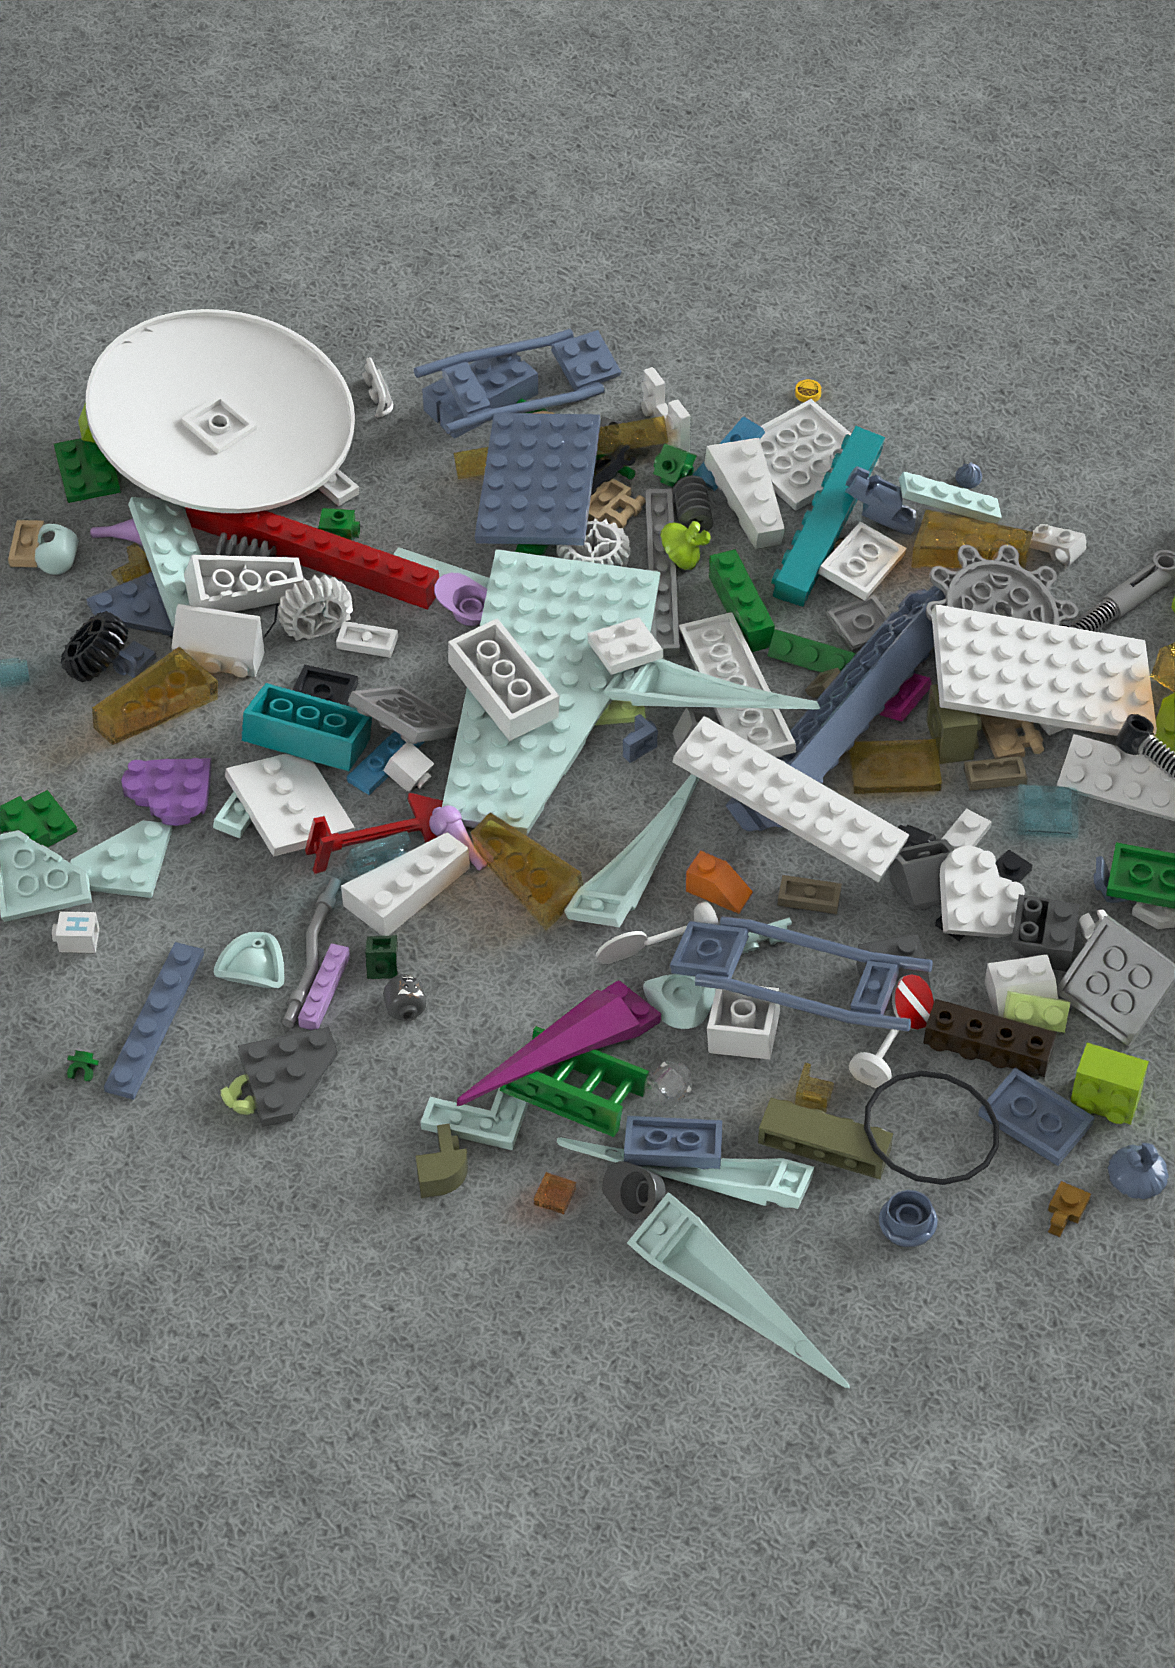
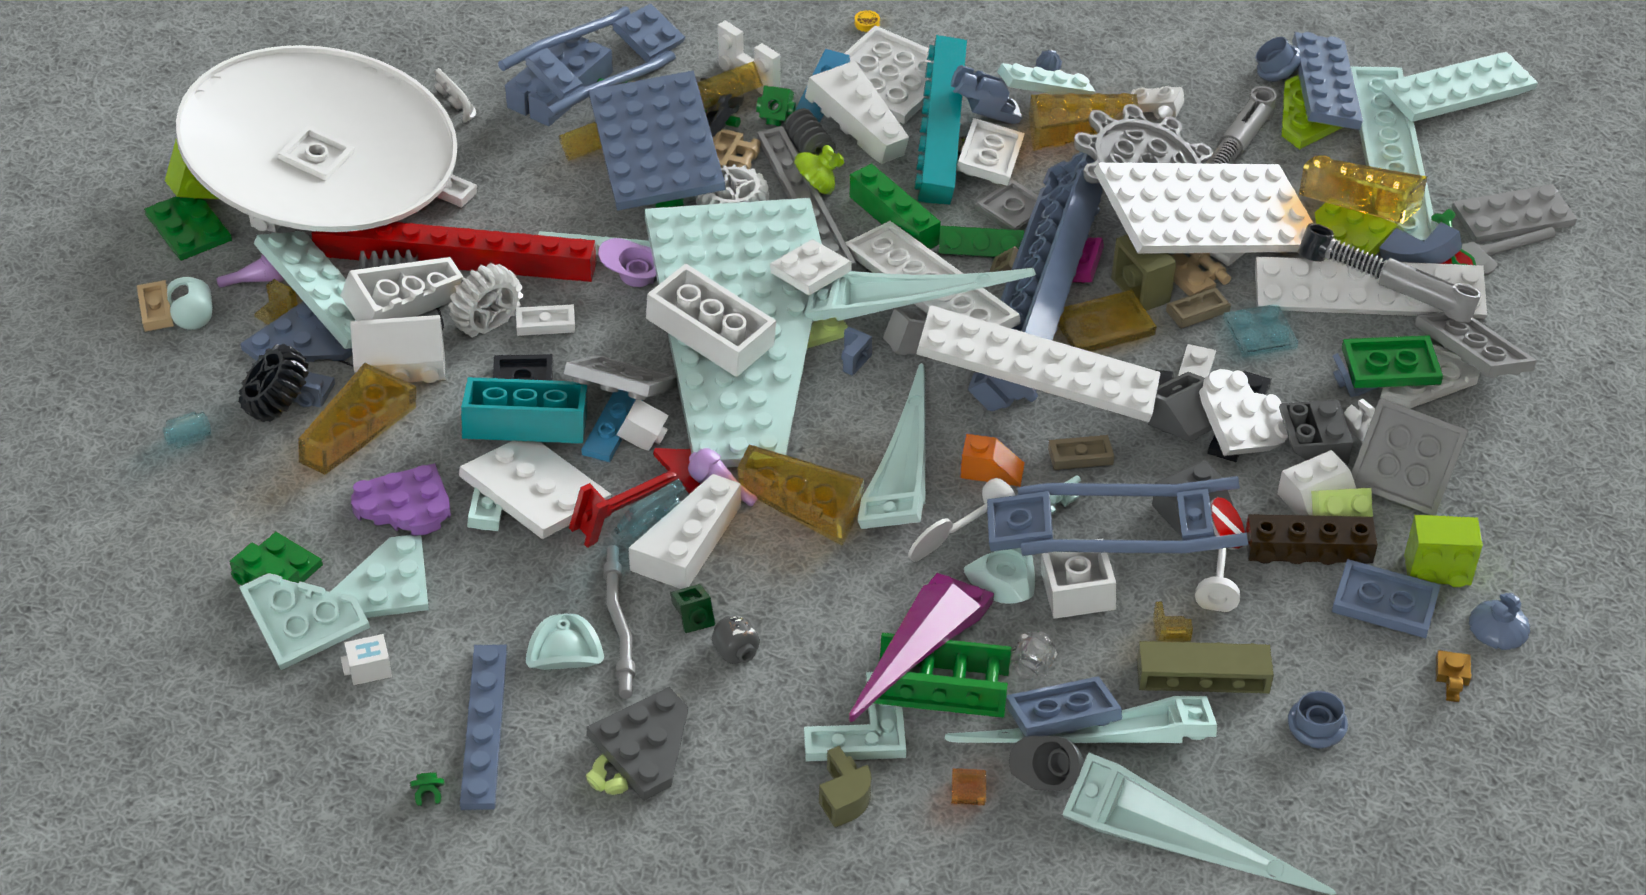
camera: 20 degrees left, 5 degrees down
(324, 987) = (647, 651): lavender piece -> none
(340, 522) = (474, 218): green brick -> none
(977, 1095) = (1312, 679): black piece -> none

